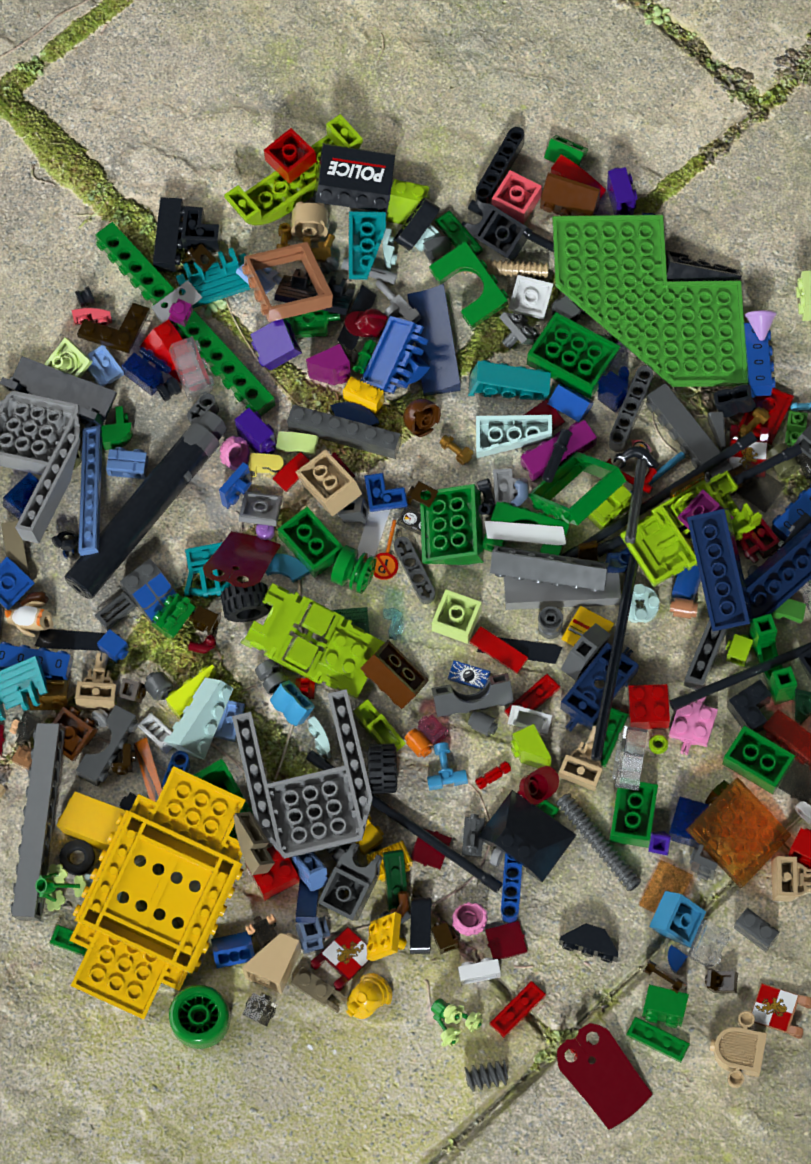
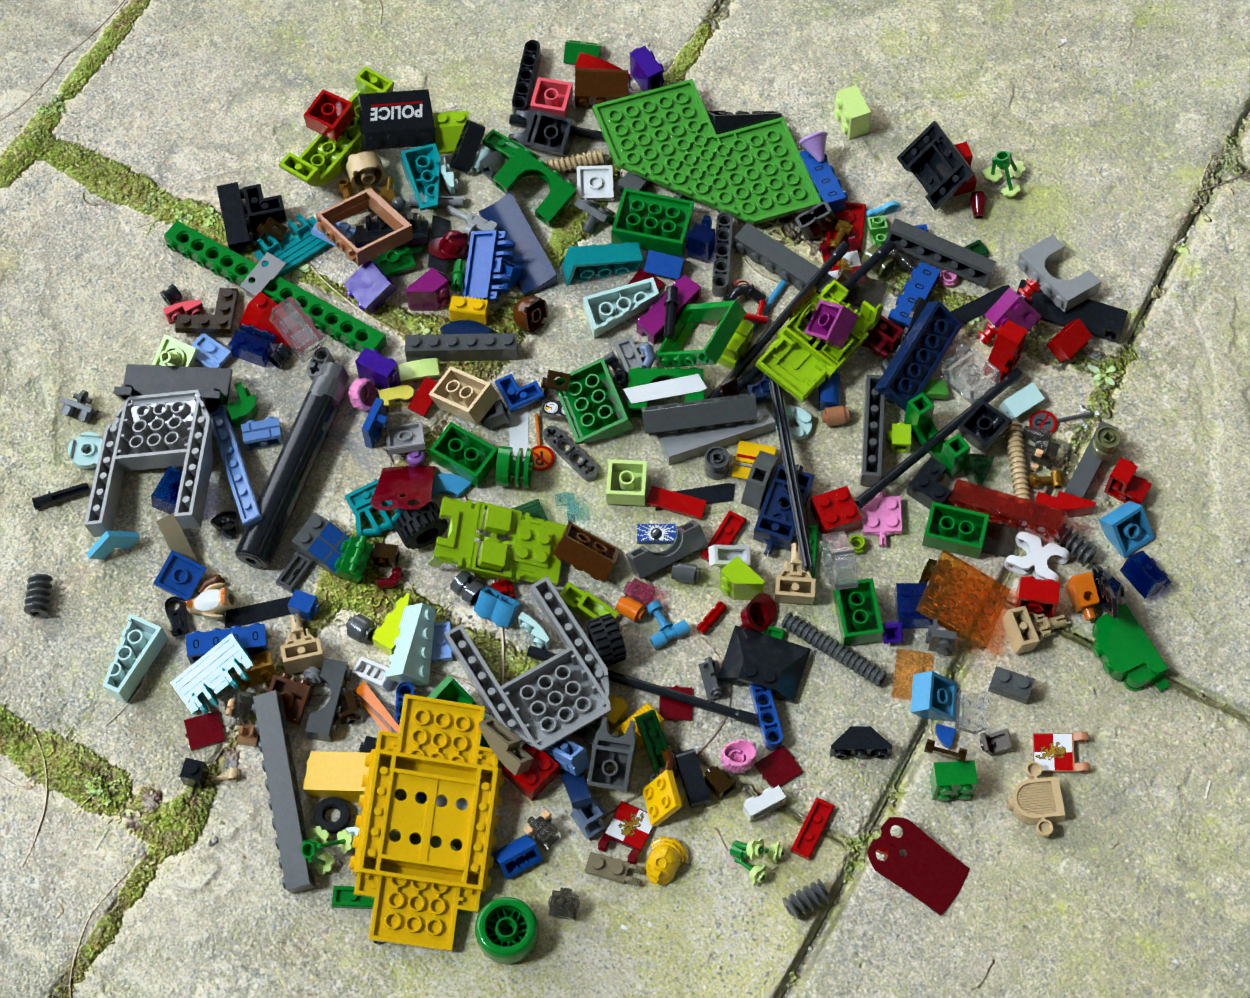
camera: 20 degrees left, 5 degrees down
(136, 691) = (340, 640): dark brown brick -> none
(180, 312) = (270, 280): magenta brick -> none
(274, 962) = (563, 855): tan slope -> none
(463, 455) = (581, 338): pearl gold bar -> none
(496, 857) = (742, 691): light grey tile -> none
(636, 501) = (759, 330): dark grey axle -> none
(658, 1039) = (956, 815): green tile -> none
(716, 423) = (807, 248): dark grey slope -> none
(720, 569) = (862, 365): dark blue arch -> none

